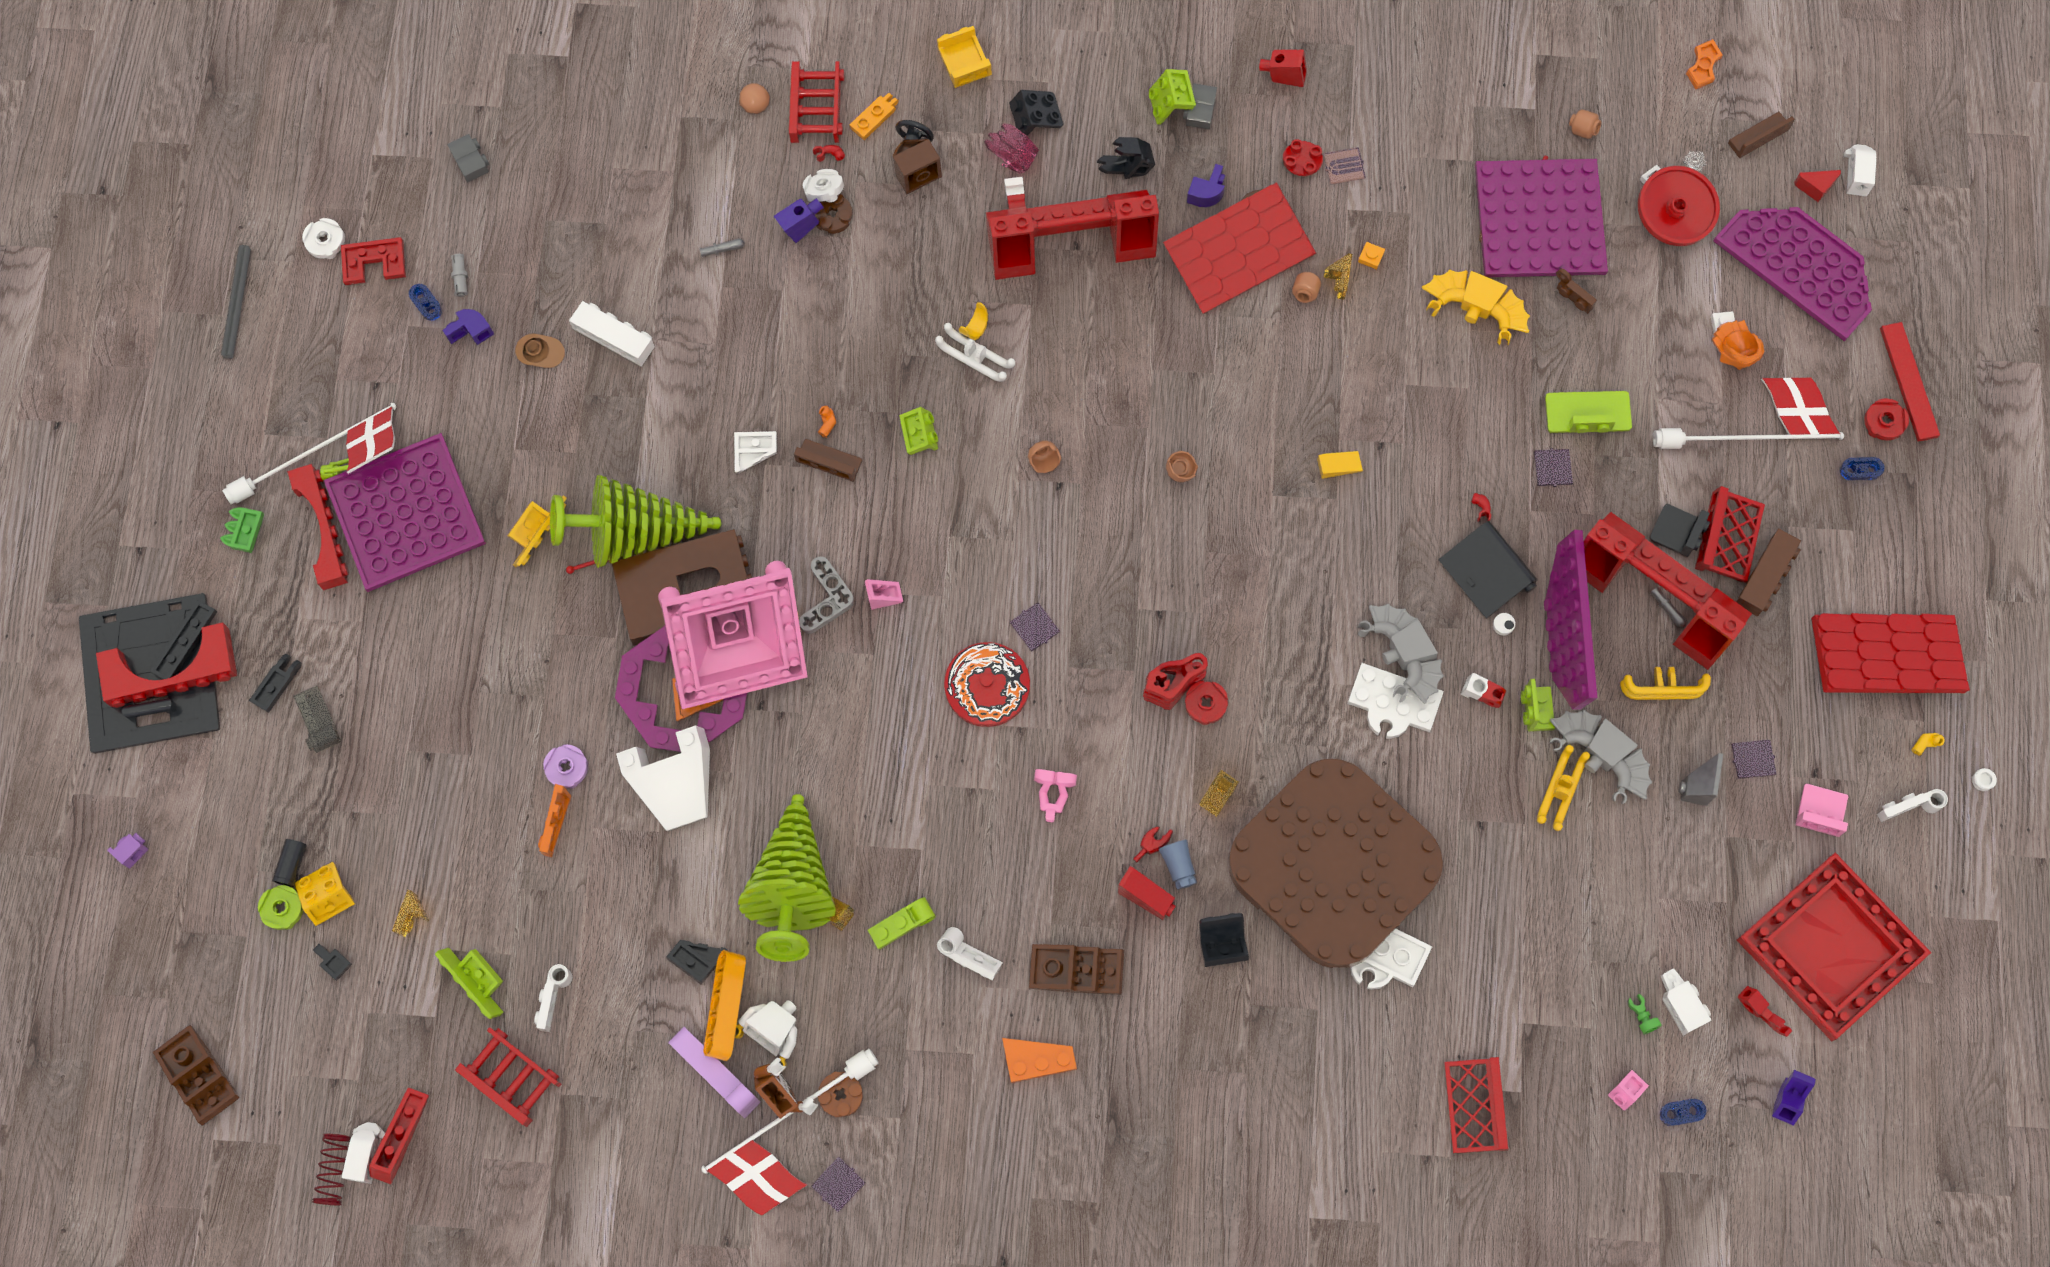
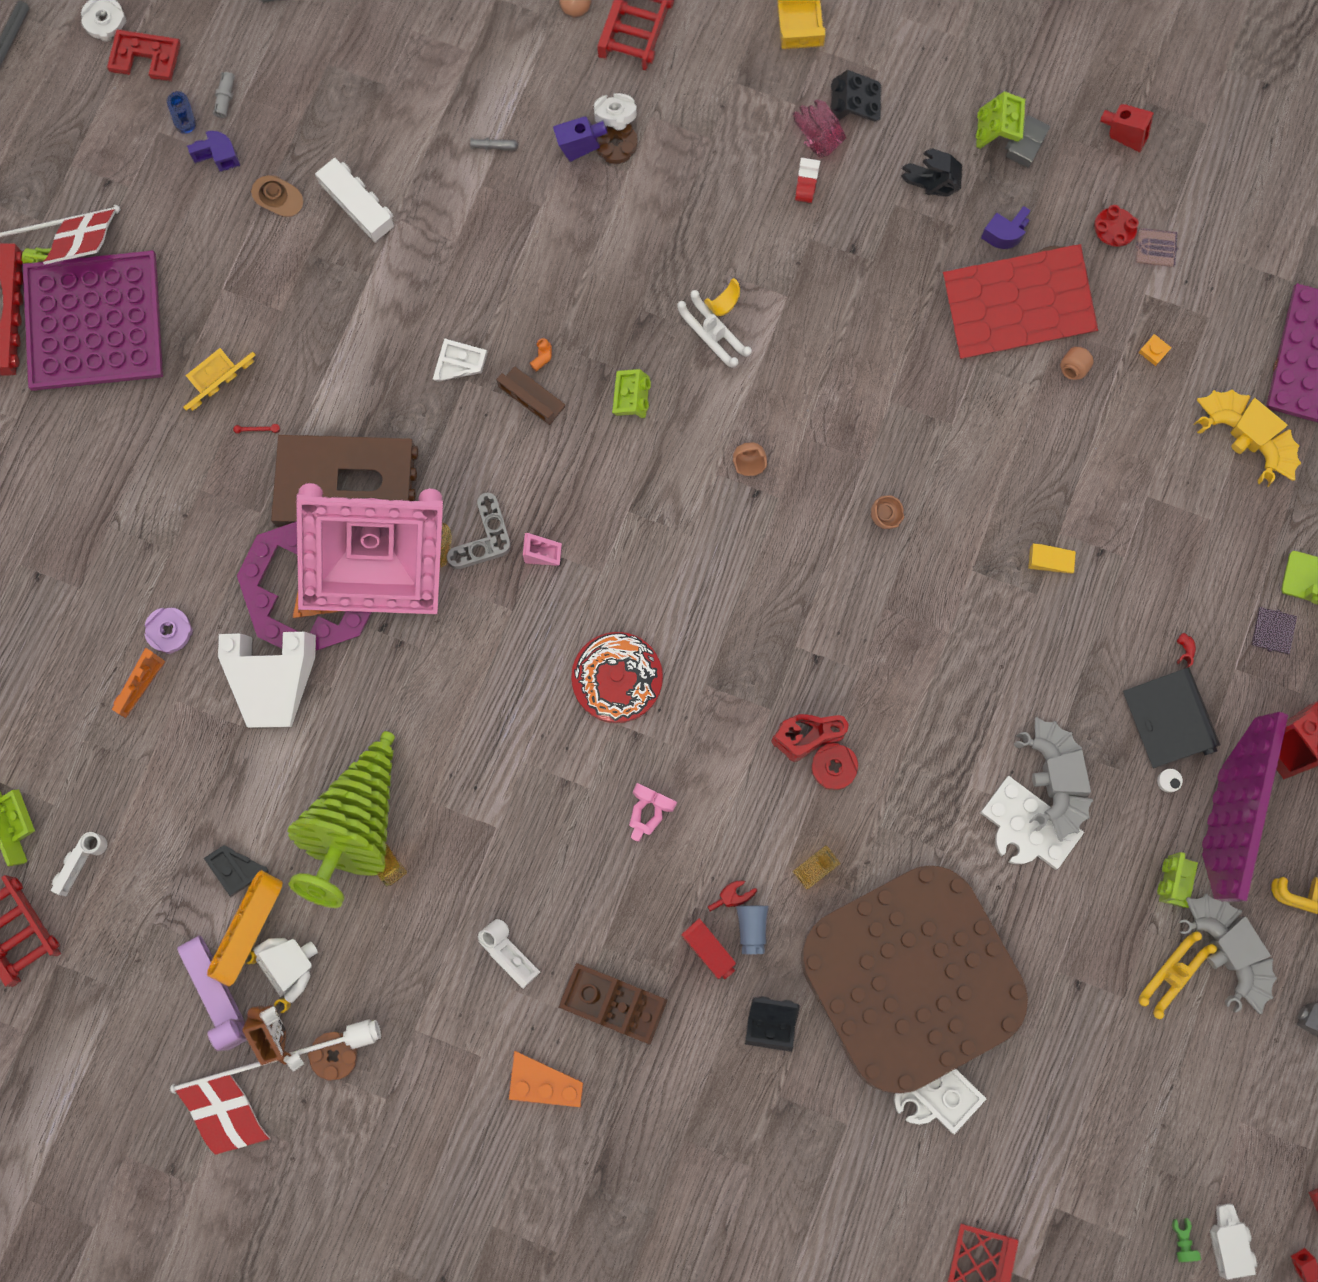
camera: 15 degrees right, 5 degrees up
(628, 521) = (306, 398): lime plant -> none
(834, 150) = (637, 76): red arm -> none
(838, 1184) = (302, 1148): clear purple piece -> none
(874, 116) = (690, 53): light orange hinge -> none
(902, 922) = (451, 898): lime plate -> none
(915, 157) = (717, 108): reddish brown piece -> none
(1034, 627) = (684, 632): clear purple piece -> none
(1130, 215) = (916, 232): red brick -> none
(1340, 271) = (1117, 358): clear yellow slope -> none
(1483, 690) = (1126, 844): leg -> none

